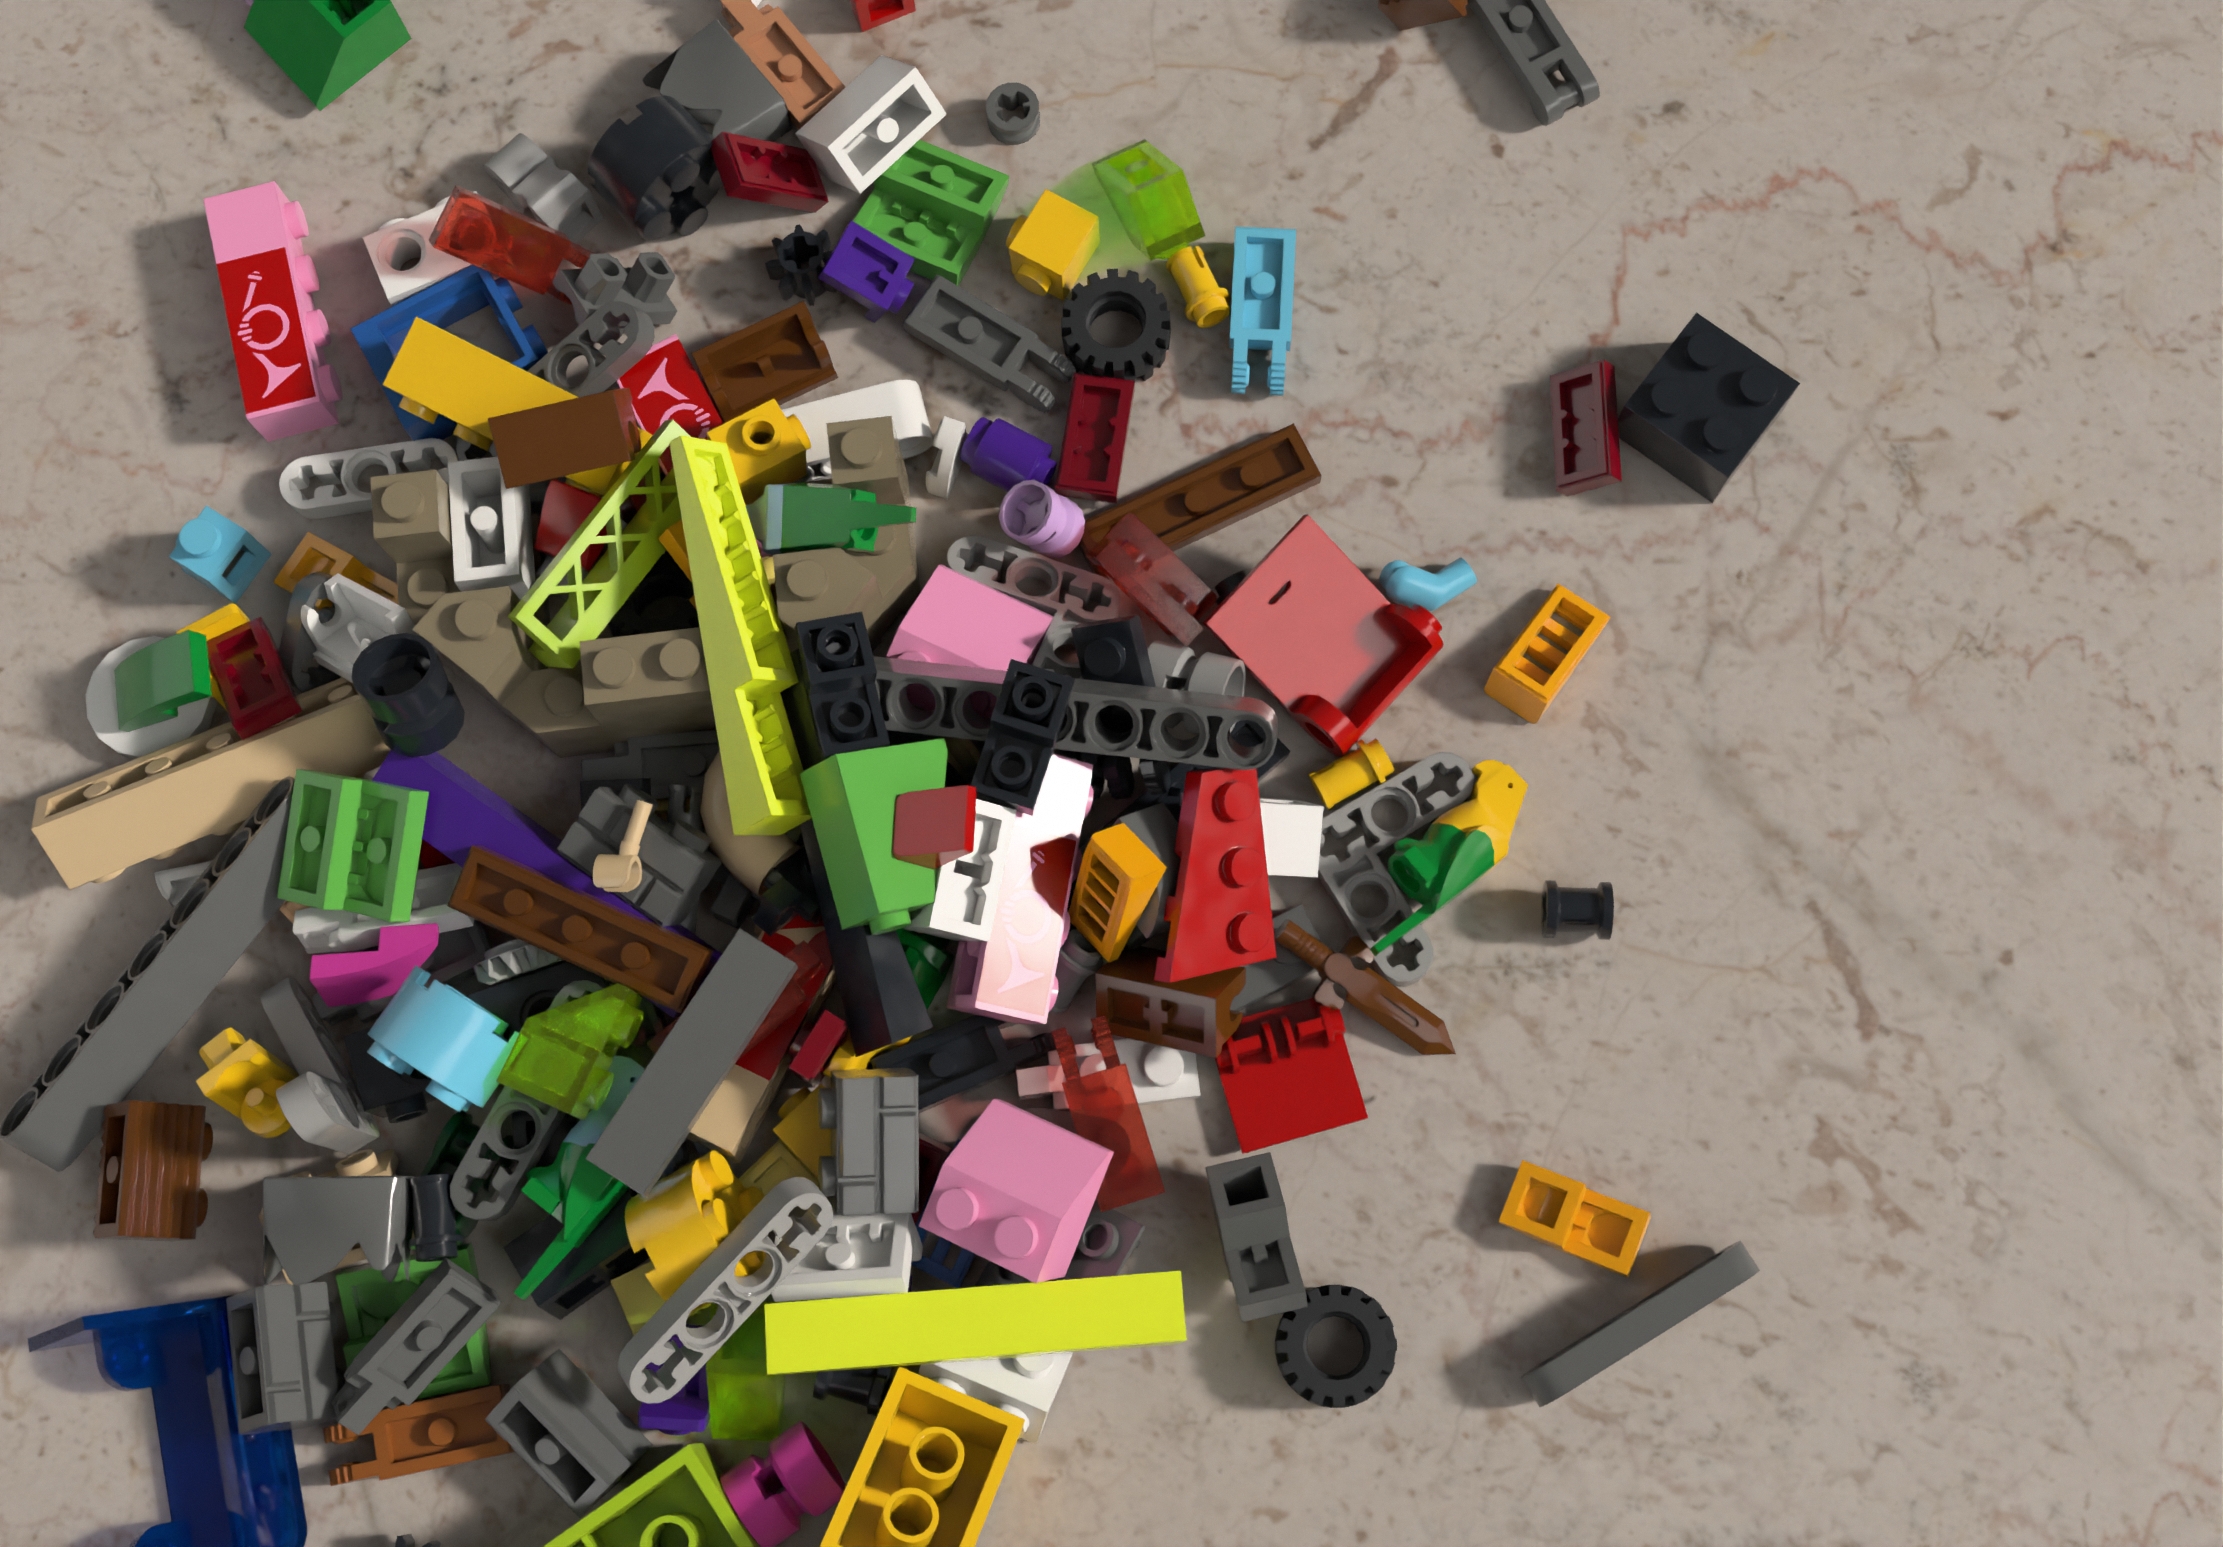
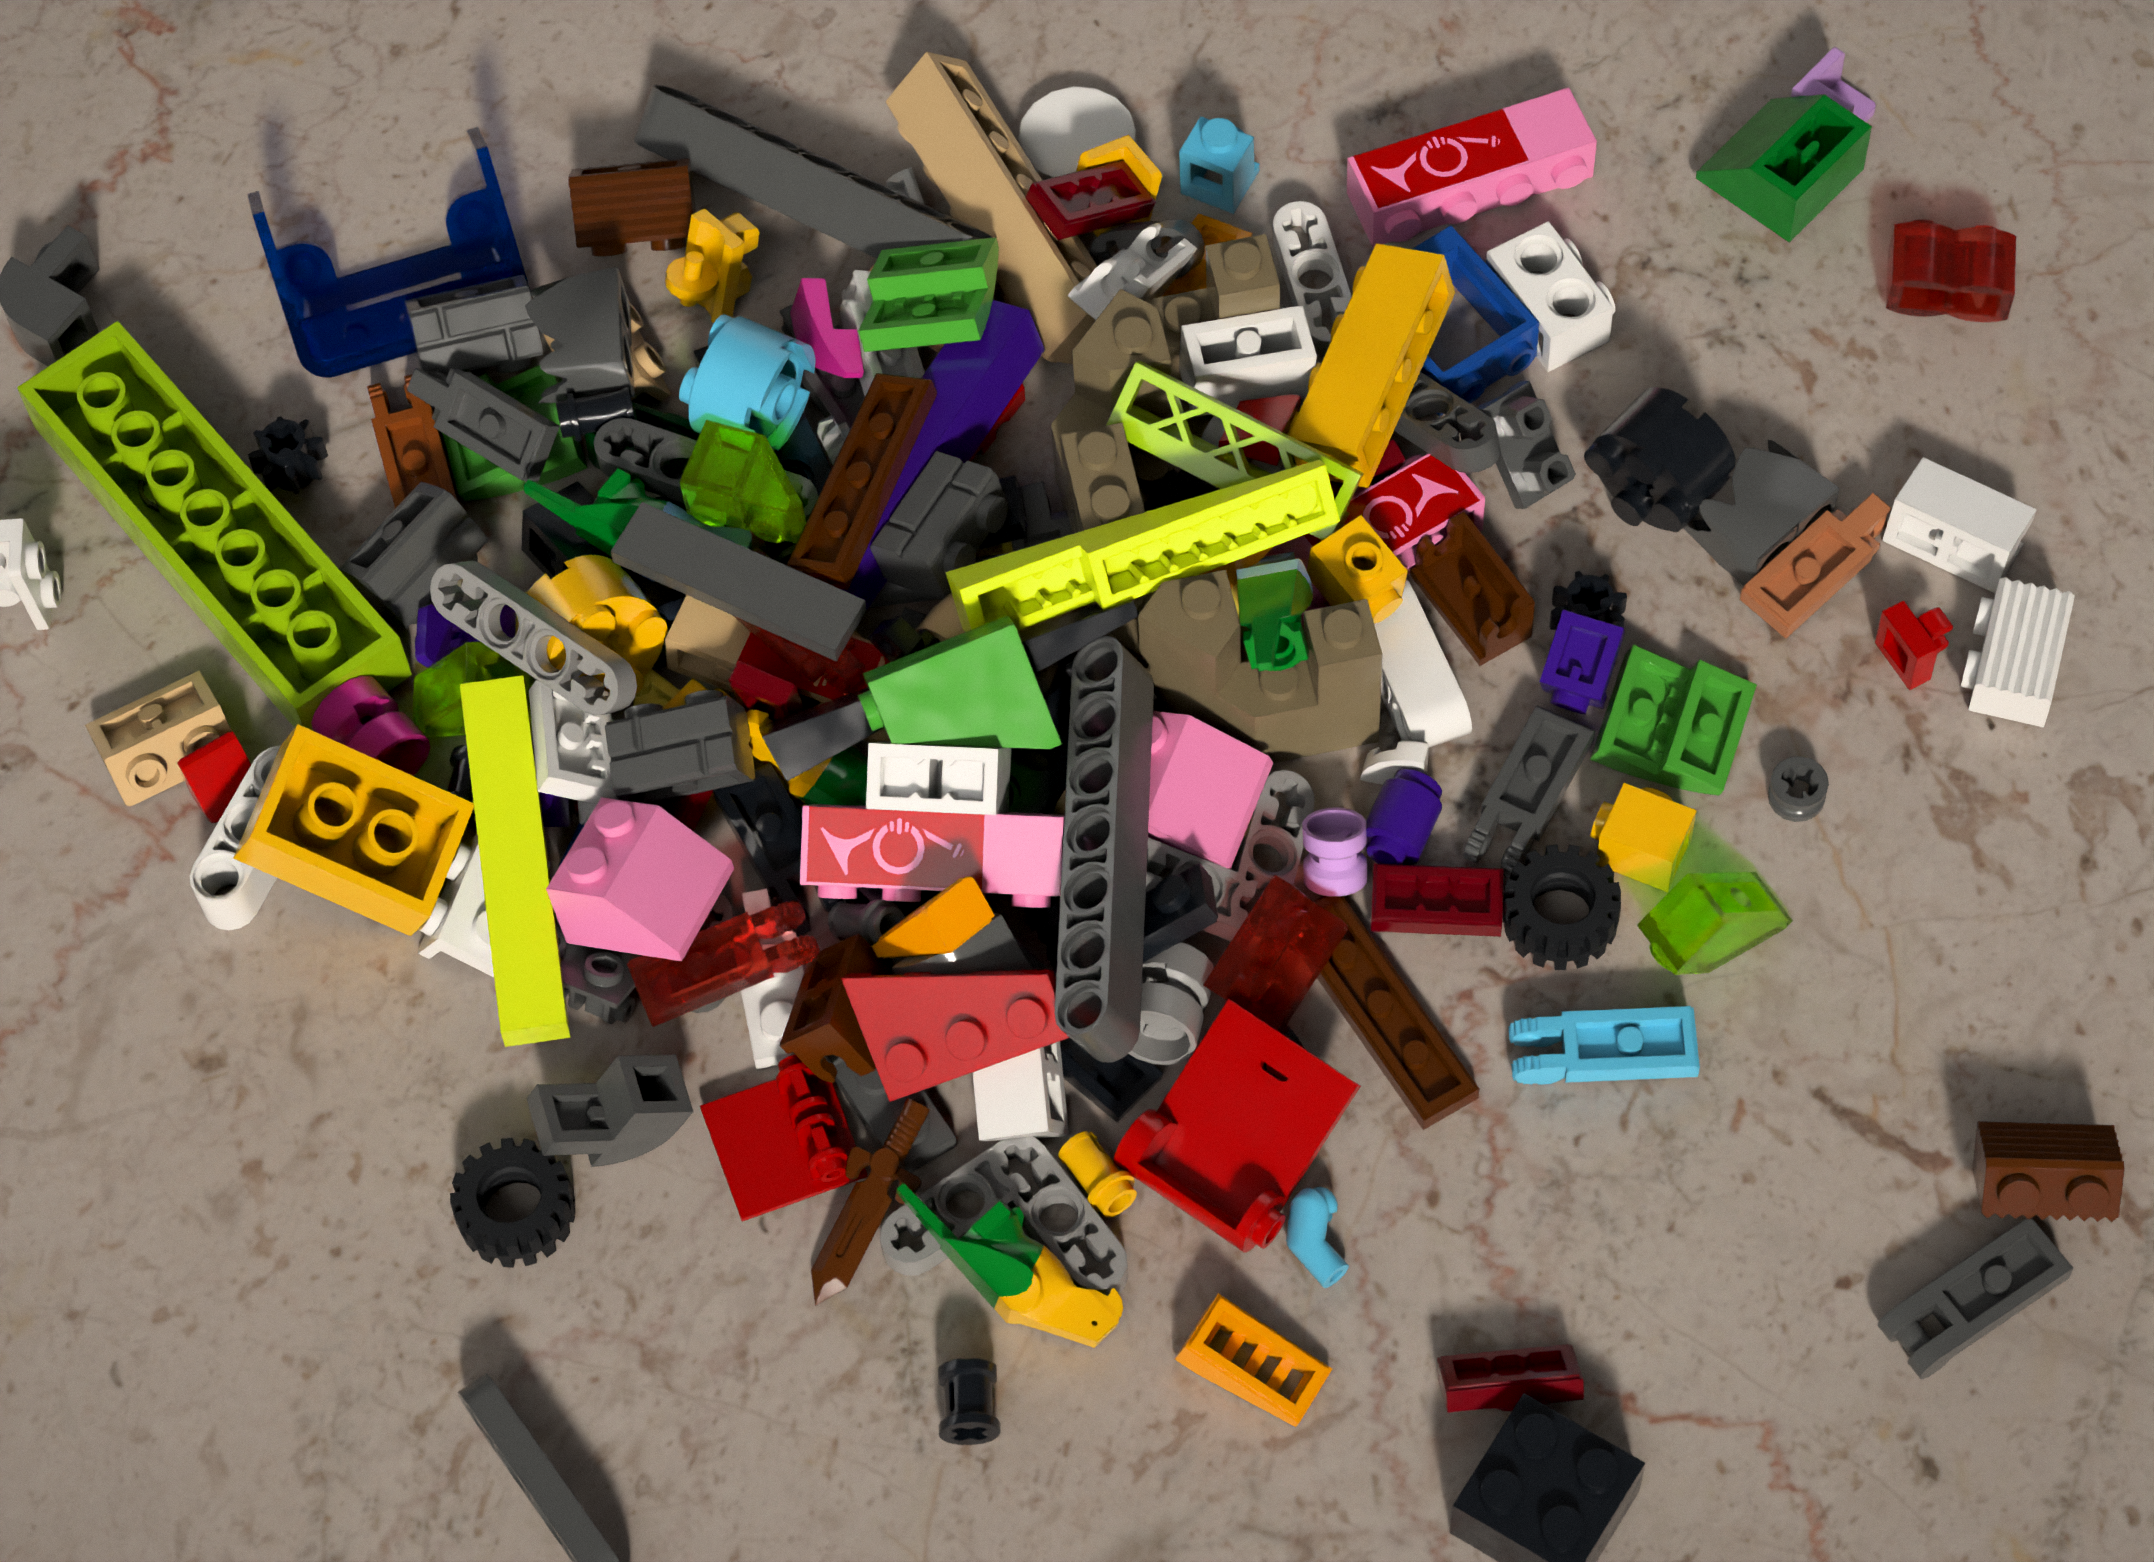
camera: 85 degrees right, 15 degrees down
(161, 679) = (1081, 133): green slope -> none
(324, 1099) = (685, 307): light grey beam -> none
(408, 694) = (1063, 301): black wheel -> none
(504, 242) = (1556, 340): clear red hinge -> none
(539, 184) = (1619, 376): light grey leg -> none
(566, 437) = (1330, 388): reddish brown hinge -> none
(624, 870) = (915, 499): tan hand -> none
(768, 172) = (1677, 559): dark red plate -> none
(841, 684) = (1097, 642): black slope -> none
(871, 123) = (1750, 646): white brick -> none
(934, 825) = (959, 723): red slope -> none
(1022, 736) = (1063, 808): black slope -> none
(1204, 298) = (1621, 982): yellow pin -> none
(1575, 1219) = (648, 1424): light orange slope -> none

